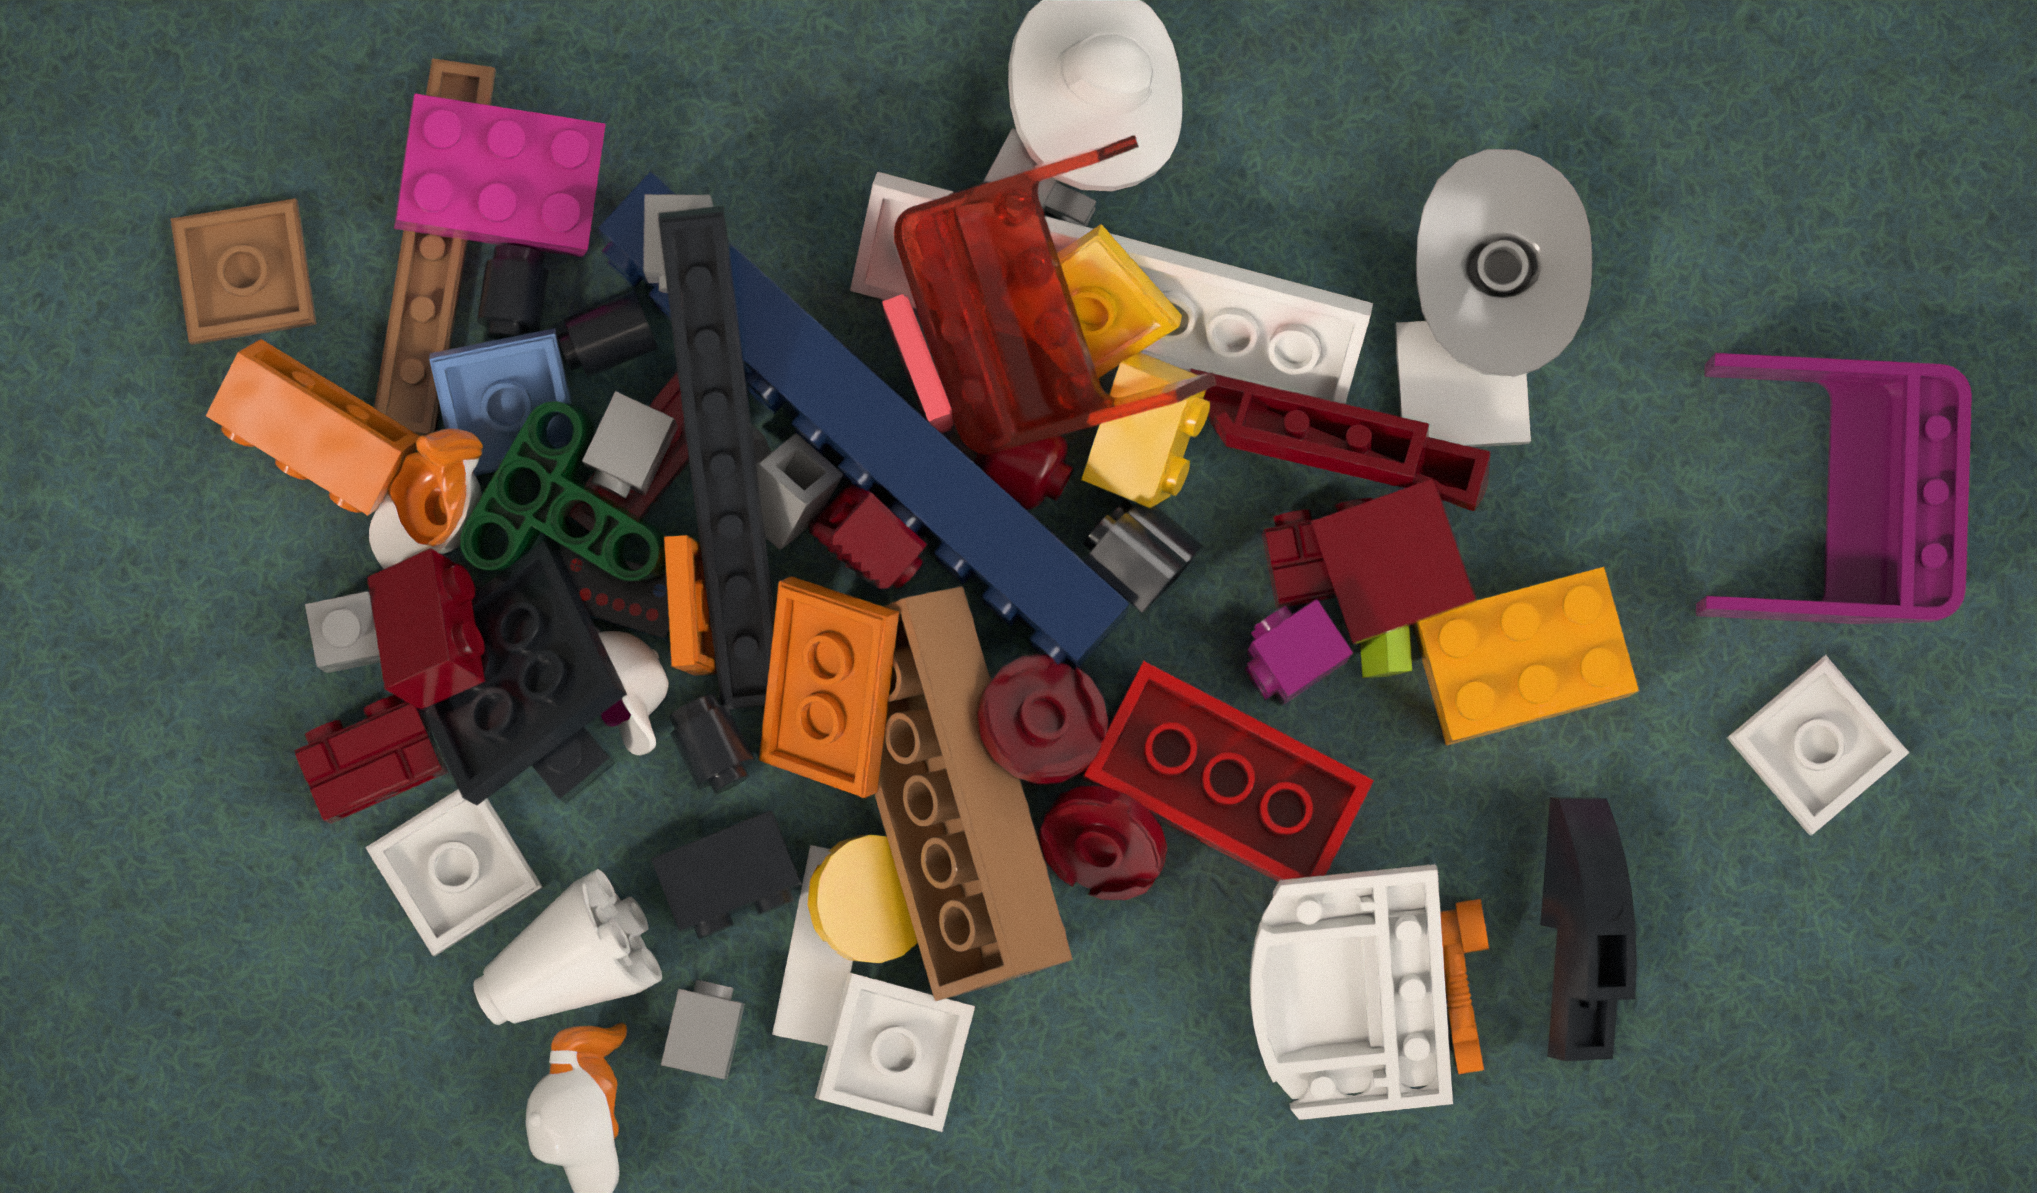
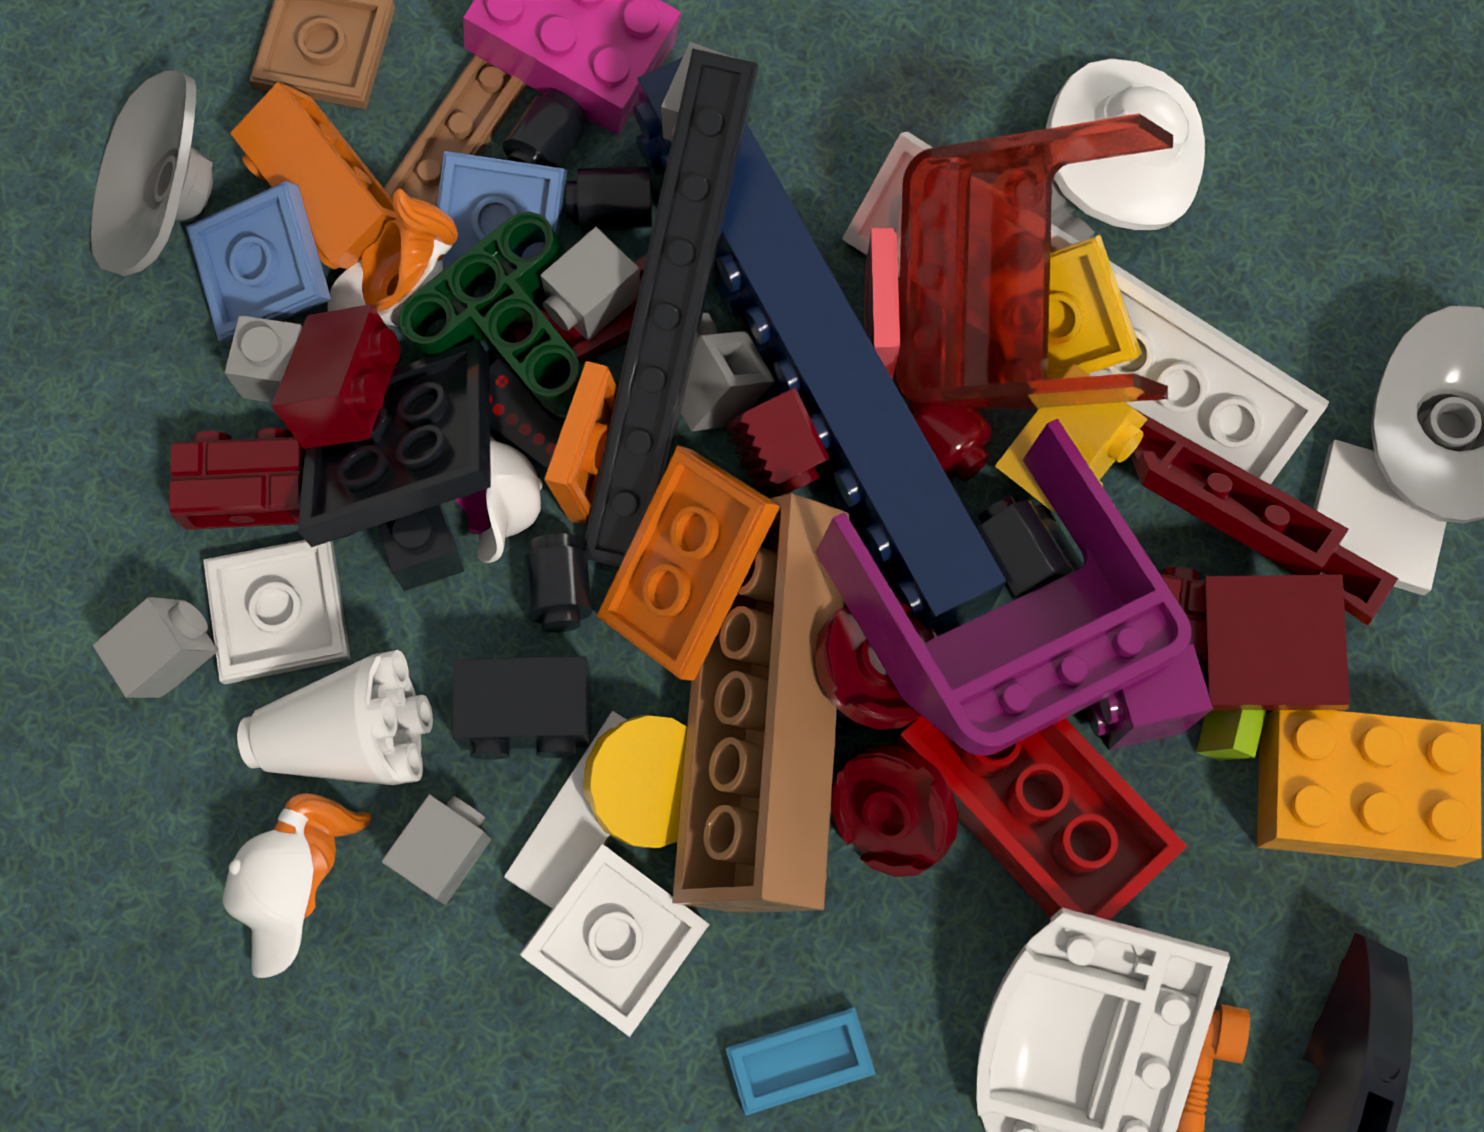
camera: 20 degrees right, 10 degrees down
(141, 489) = (149, 175): none -> light grey hat
(290, 537) = (259, 260): none -> medium blue tile
(364, 948) = (155, 647): none -> light grey brick
(1100, 1094) = (800, 1061): none -> dark azure tile
(1181, 660) = (1041, 651): none -> magenta windscreen

